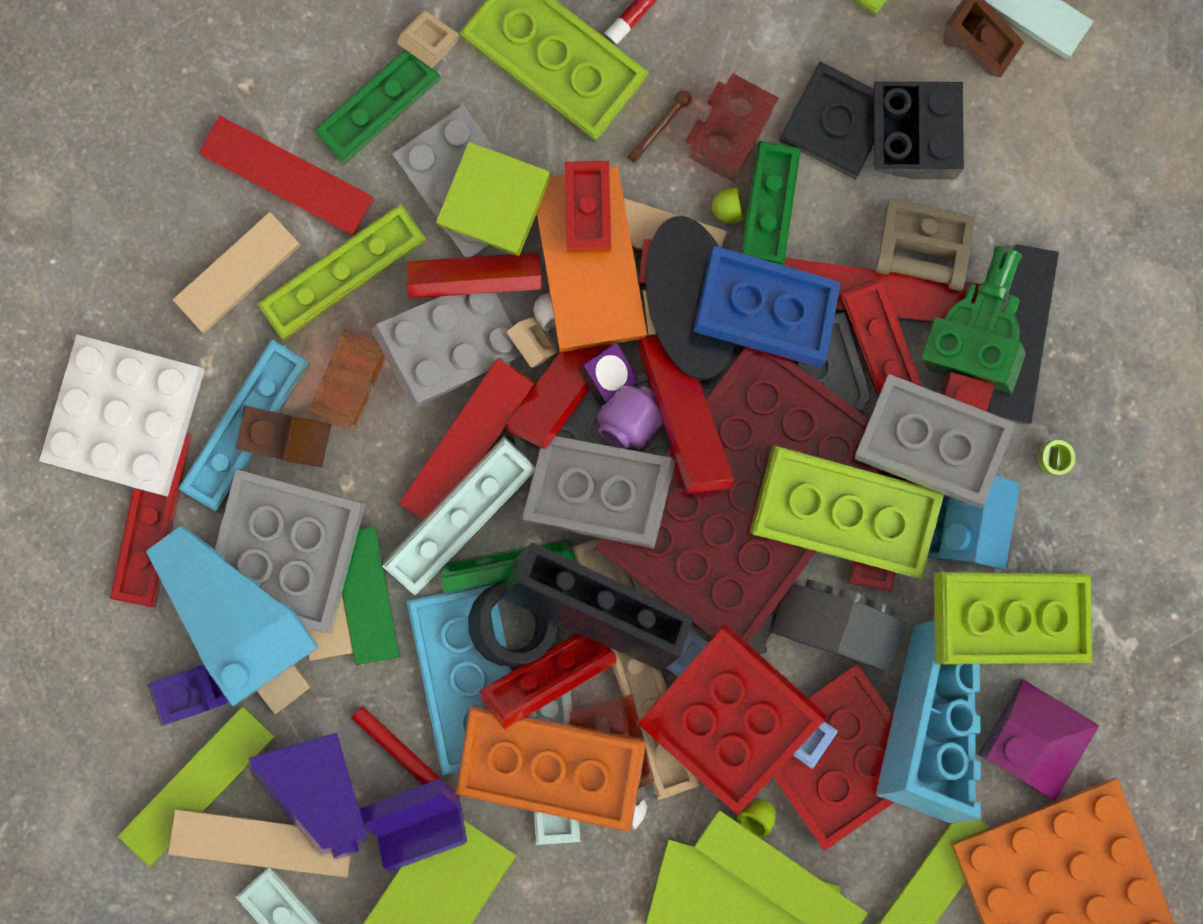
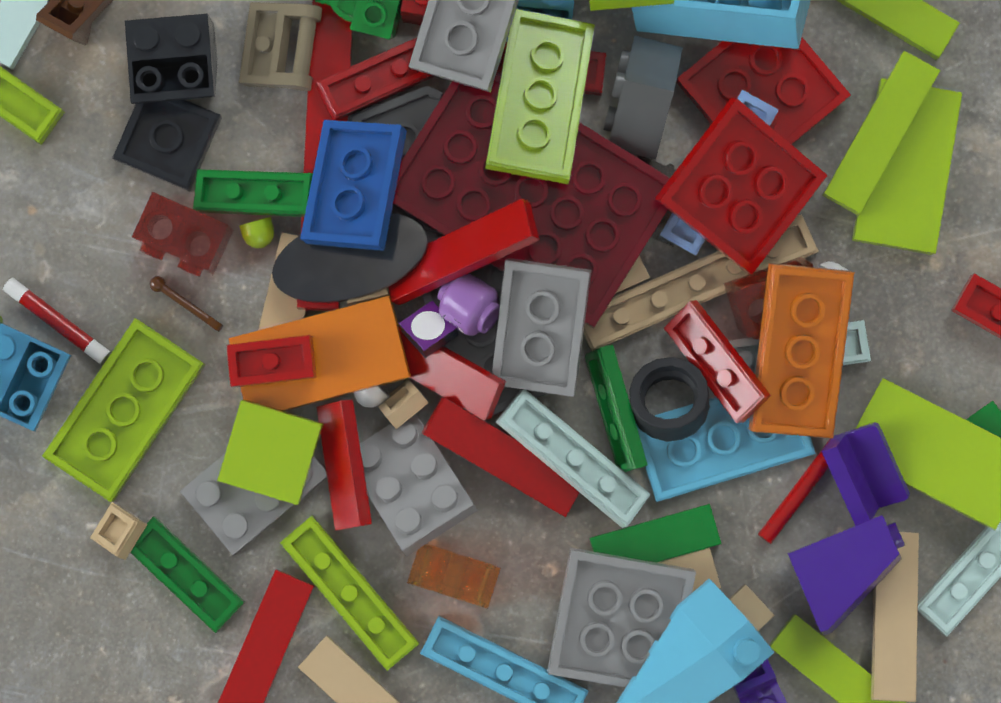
camera: 90 degrees left, 0 degrees up
(283, 436) = (512, 633): reddish brown slope -> none
(597, 607) = (649, 319): black brick -> none
(758, 817) = (826, 157): lime hinge -> none

